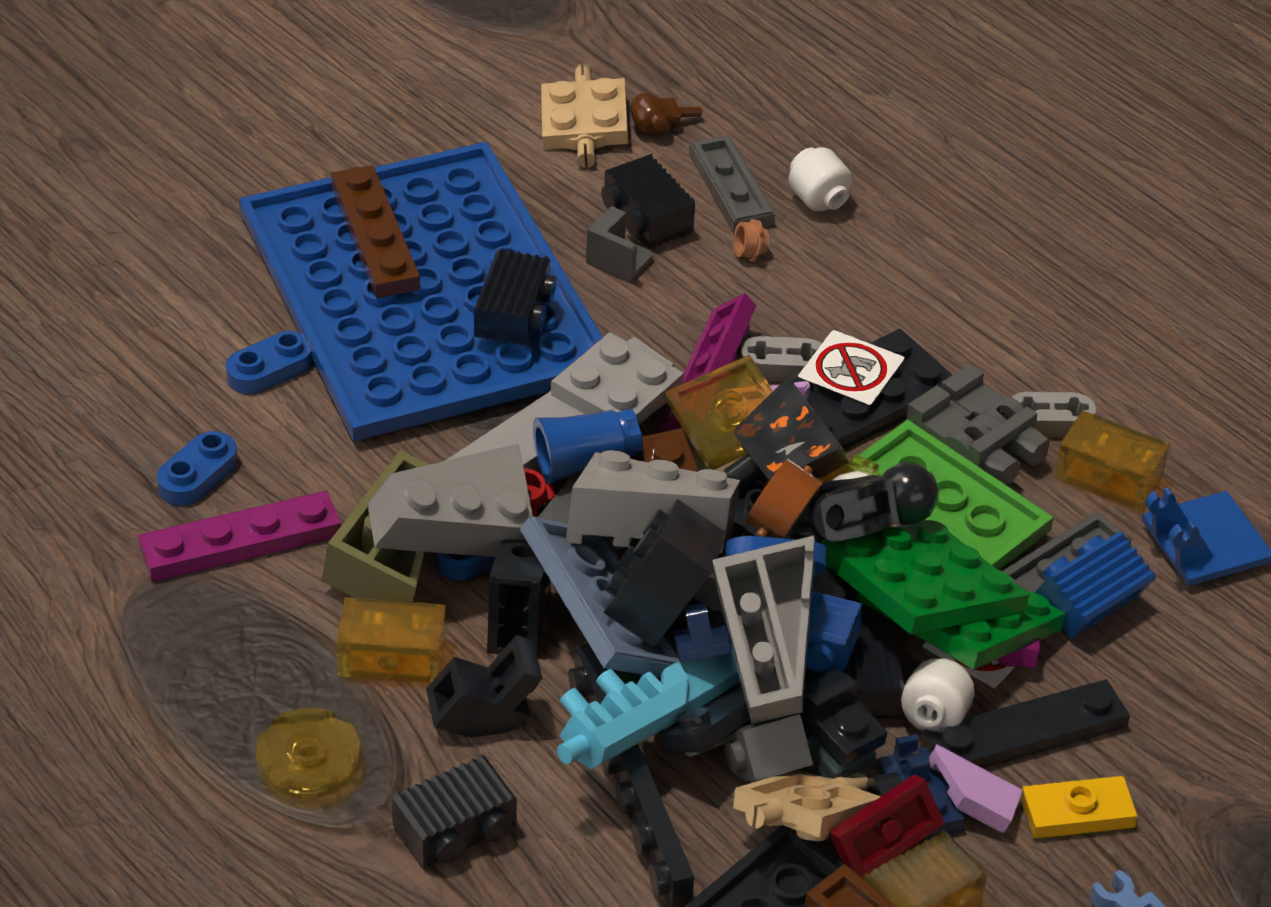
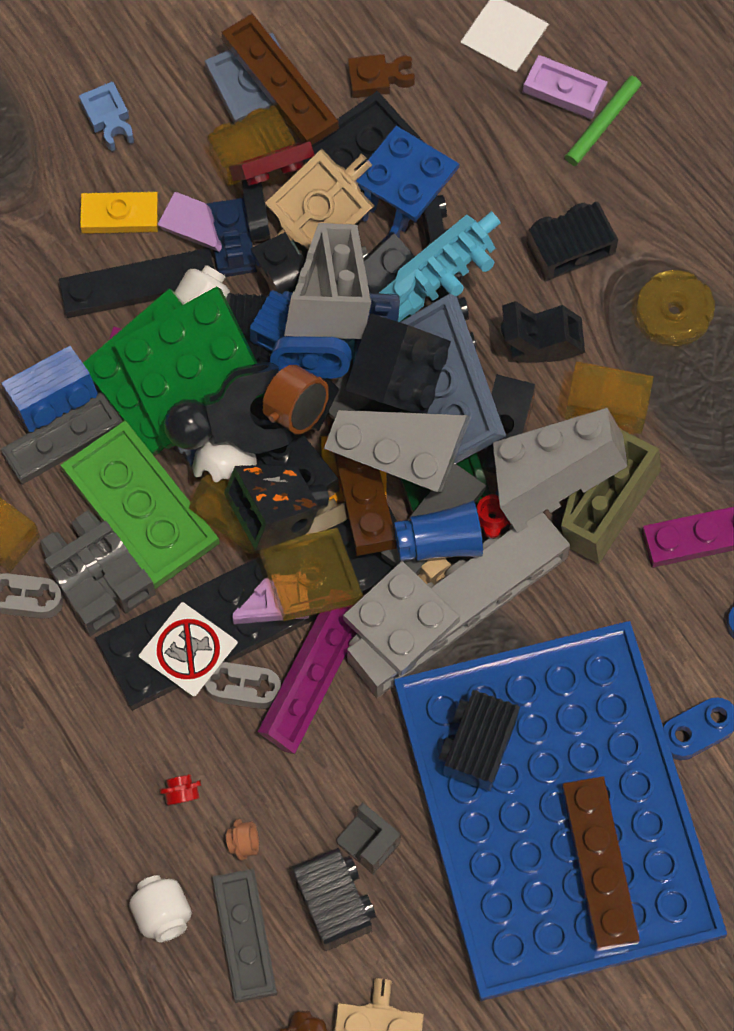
camera: 170 degrees left, 25 degrees up
(695, 838) = (405, 176): none -> blue plate
(817, 262) = (180, 789): none -> red plate

